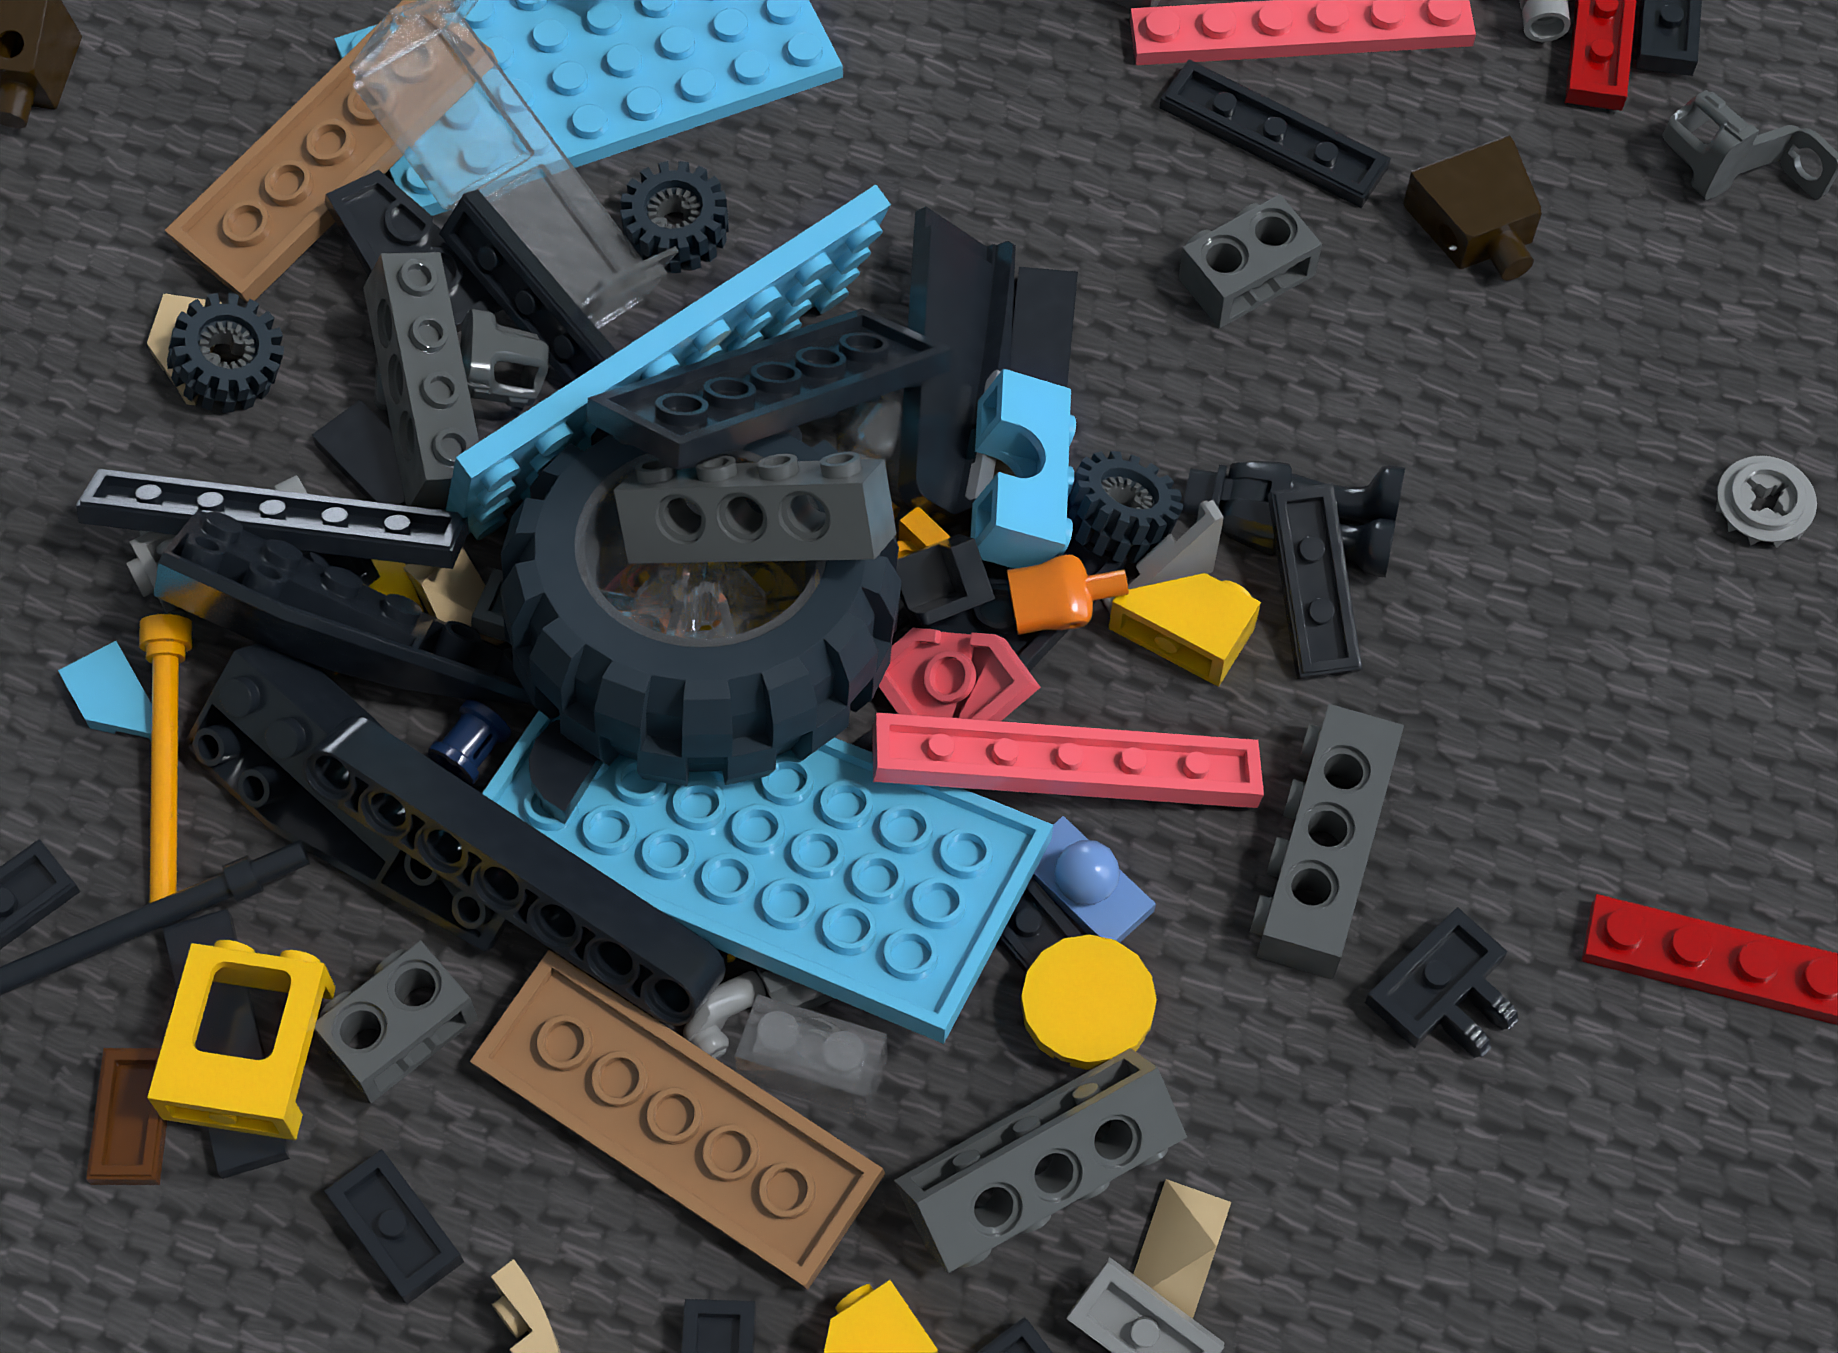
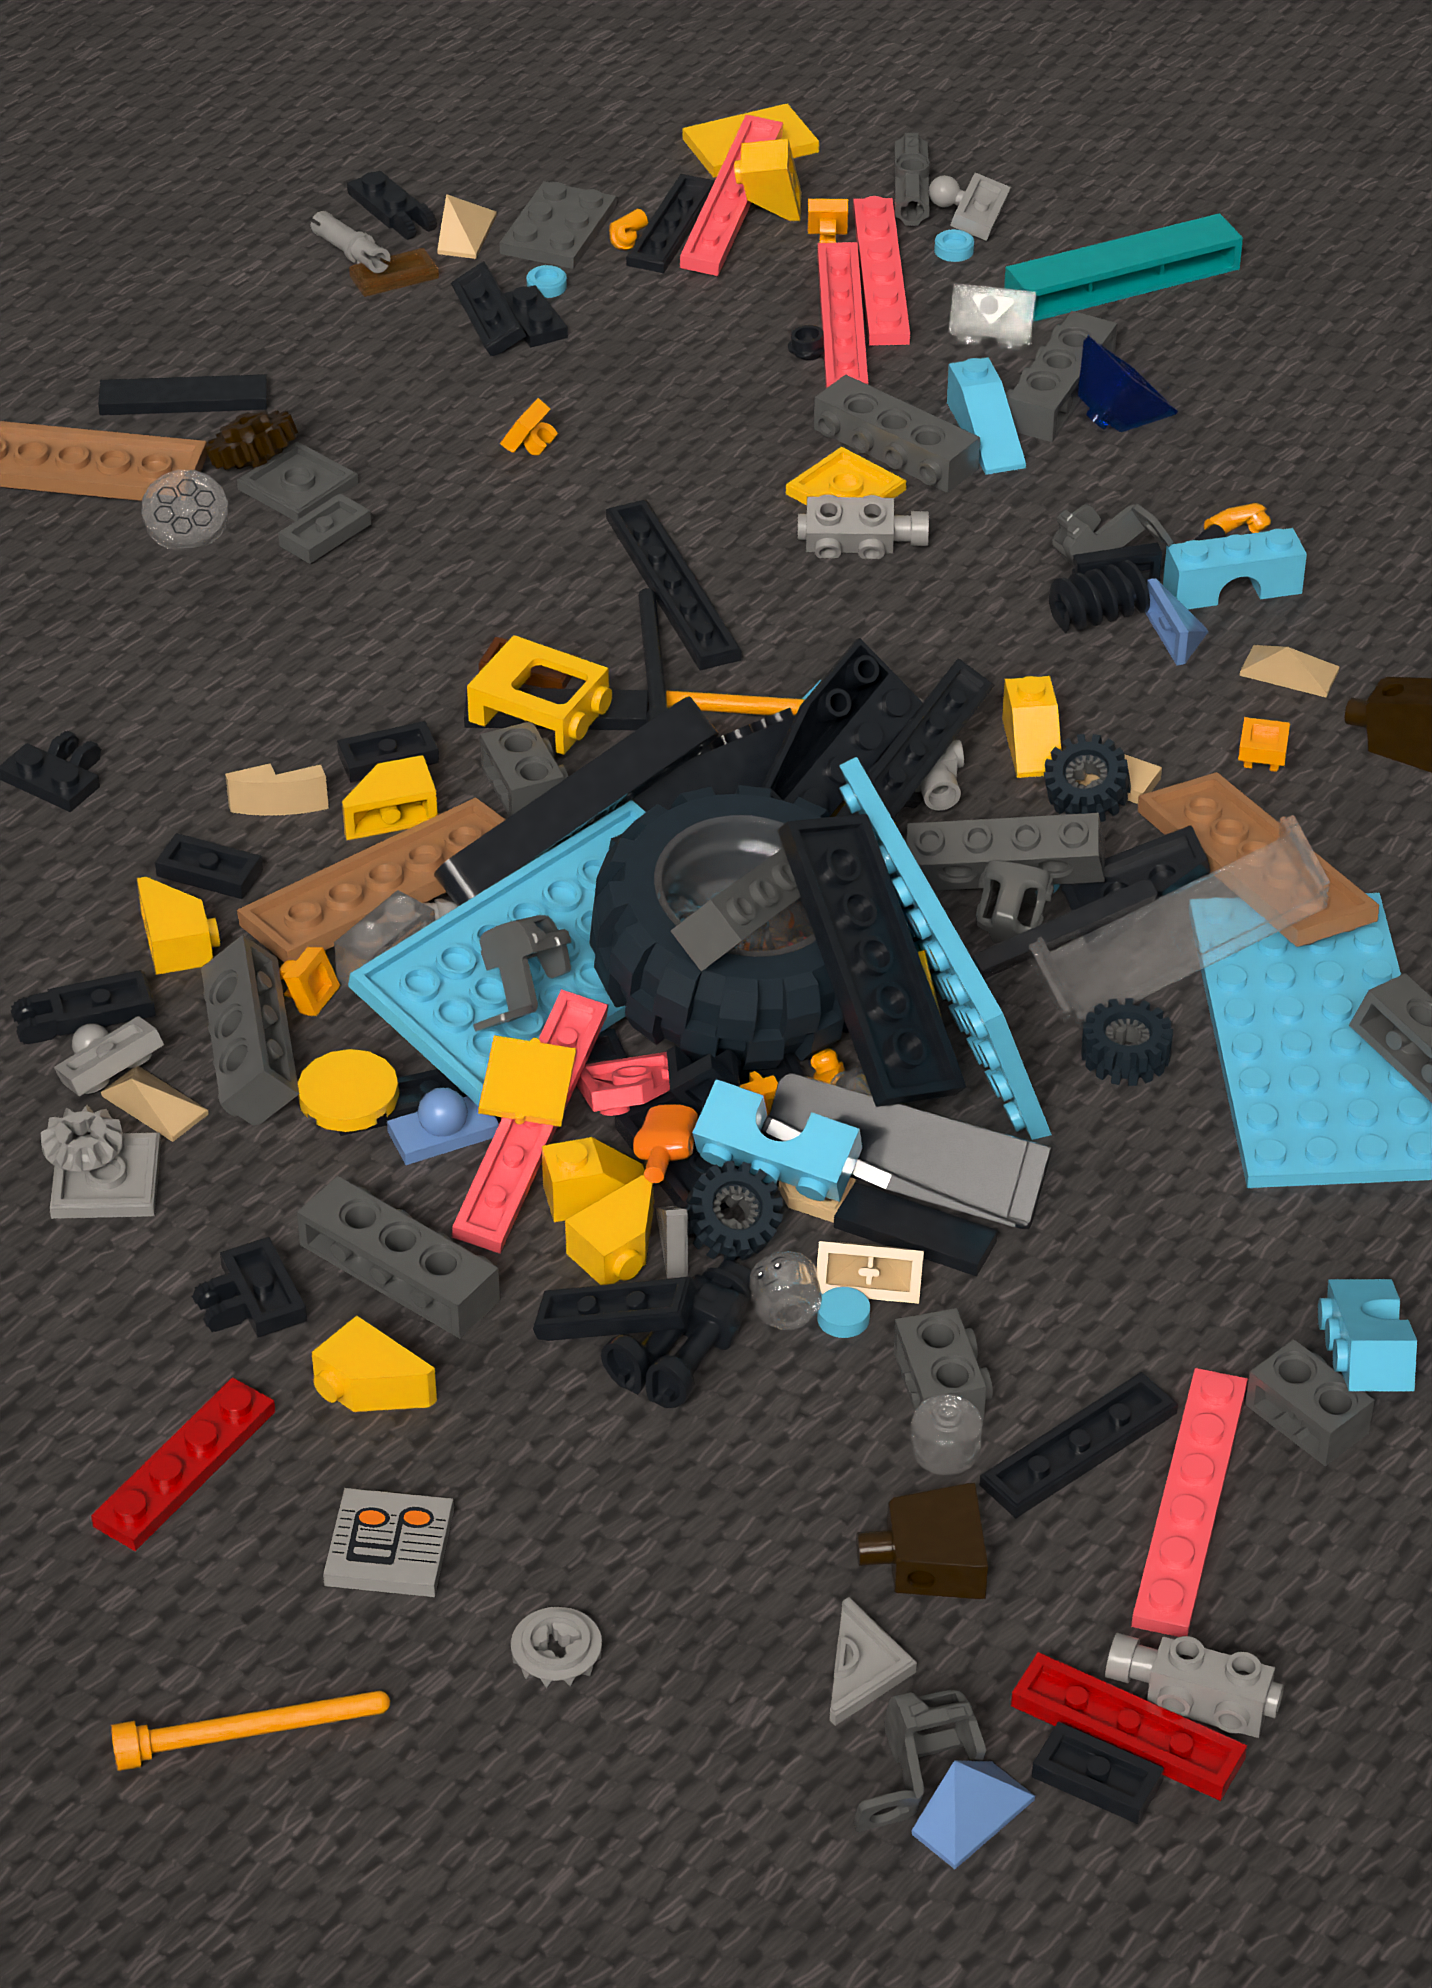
camera: 110 degrees right, 20 degrees down
(100, 189) = (1264, 742): none -> light orange tile
(131, 436) = (1030, 723): none -> yellow slope
(500, 1172) = (390, 799): none -> yellow slope
(850, 821) = (509, 949): none -> dark grey piece
(905, 1136) = (310, 980): none -> light orange tile
(1033, 765) = (527, 1081): none -> yellow piece
(1121, 368) = (872, 1269): none -> tan slope
(1121, 676) = (583, 1173): none -> yellow slope
(1192, 382) = (844, 1312): none -> medium azure tile
(1206, 427) = (785, 1290): none -> clear head
(1282, 1306) = (83, 1152): none -> light grey gear
(1330, 1255) = (114, 1190): none -> light grey tile
(1346, 223) = (946, 1434): none -> clear head
(1515, 805) = (371, 1371): none -> yellow slope
(1639, 237) = (865, 1663): none -> light grey tile
(1717, 707) = (389, 1542): none -> light grey tile
(1760, 106) = (969, 1809): none -> medium blue slope

